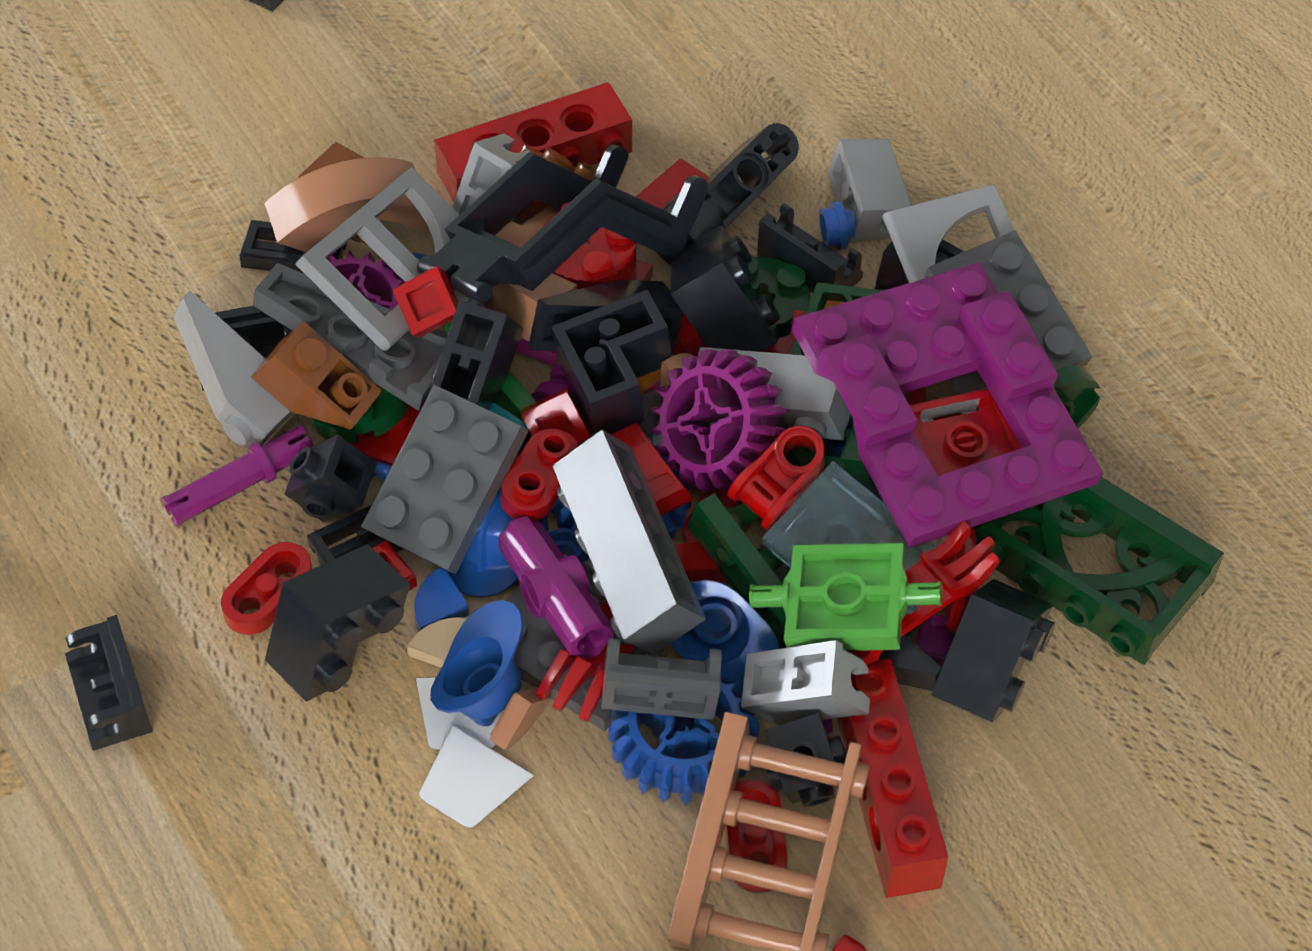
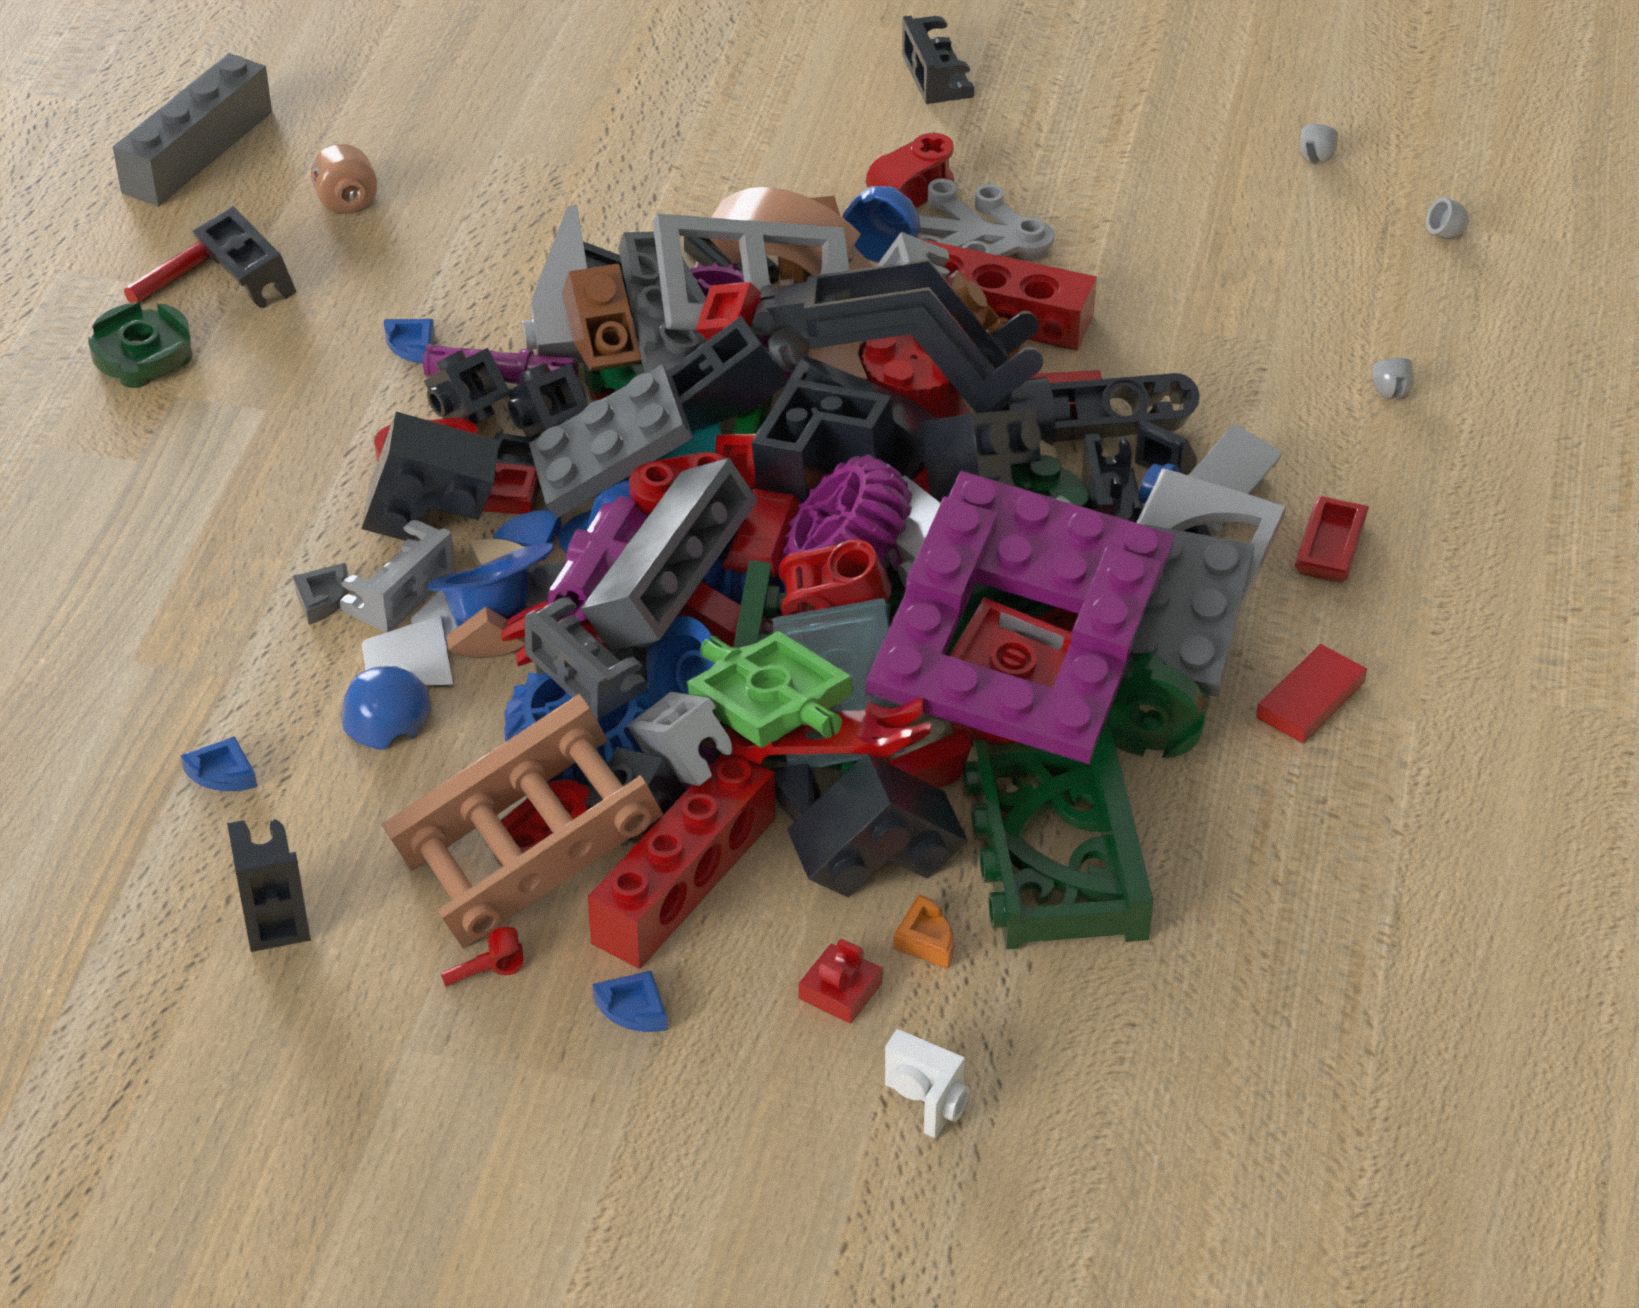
camera: 45 degrees right, 10 degrees down
(106, 684) = (258, 434): black hinge -> none
(125, 503) = (409, 337): none -> blue tile
(250, 514) = (466, 386): none -> black brick
(336, 780) = (321, 591): none -> dark grey tile
(353, 79) = (914, 166): none -> red piece
(388, 719) = (402, 581): none -> light grey hinge
(399, 134) = (880, 217): none -> blue hair
(492, 80) = (1022, 237): none -> light grey plant
(516, 838) = (384, 705): none -> blue hair
(801, 193) = (1162, 447): none -> black slope
(873, 29) = (1393, 377): none -> light grey hinge
(969, 170) = (1331, 539): none -> red tile
(976, 918) = (632, 1002): none -> blue tile
(1085, 781) = (841, 981): none -> red tile
(1089, 696) = (925, 933): none -> orange tile
(1100, 313) = (1311, 693): none -> red tile
(1232, 800) = (927, 1074): none -> white bracket

